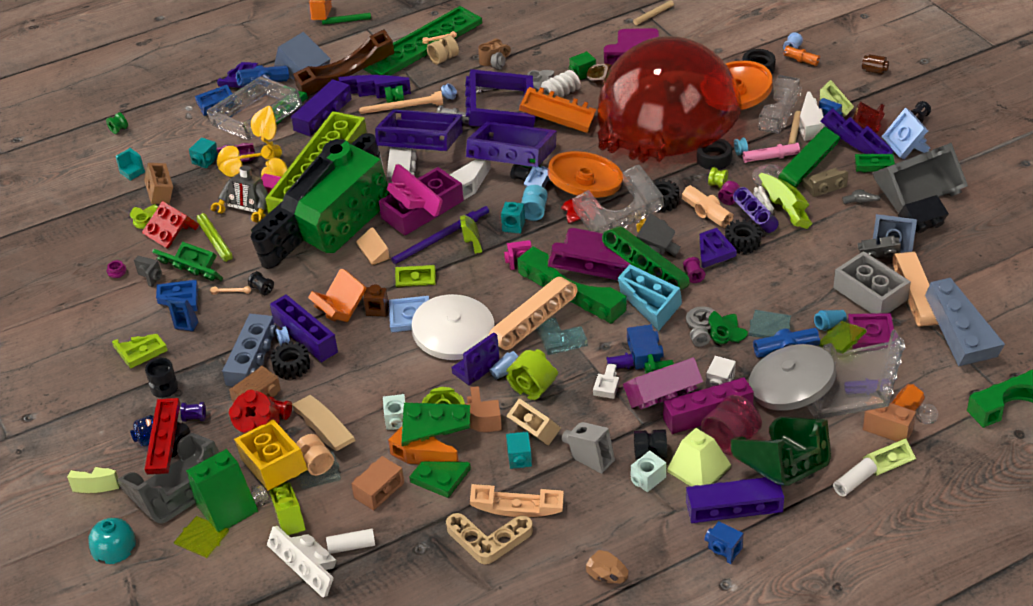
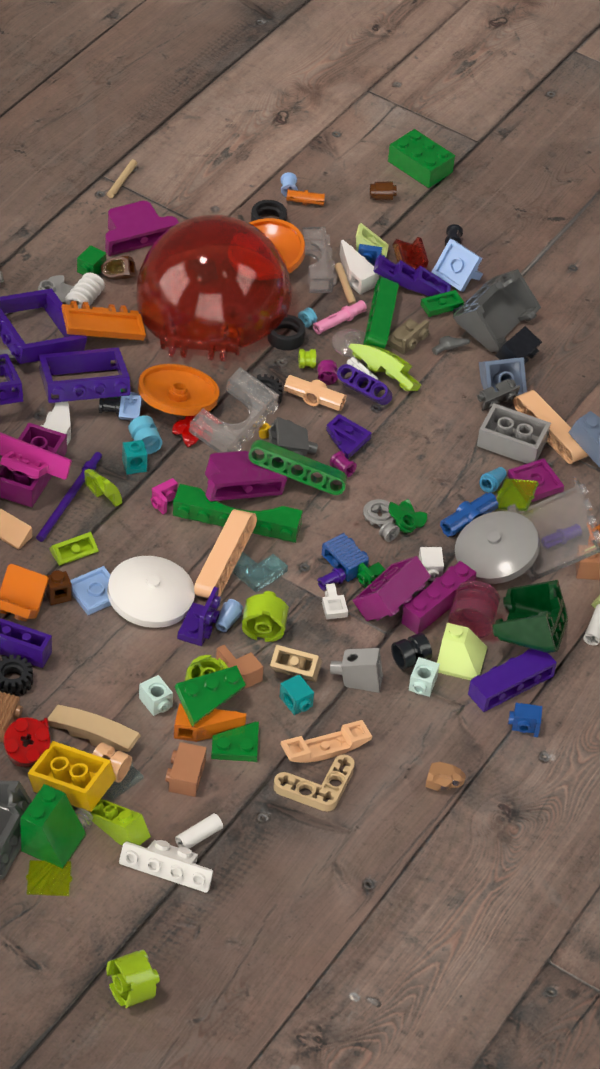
camera: 35 degrees left, 5 degrees up
(650, 295) = (321, 503): medium azure wedge -> none
(751, 232) = (370, 408): black tyre -> none
(768, 323) = (440, 500): clear light blue piece -> none
(927, 46) = (421, 158): none -> green brick

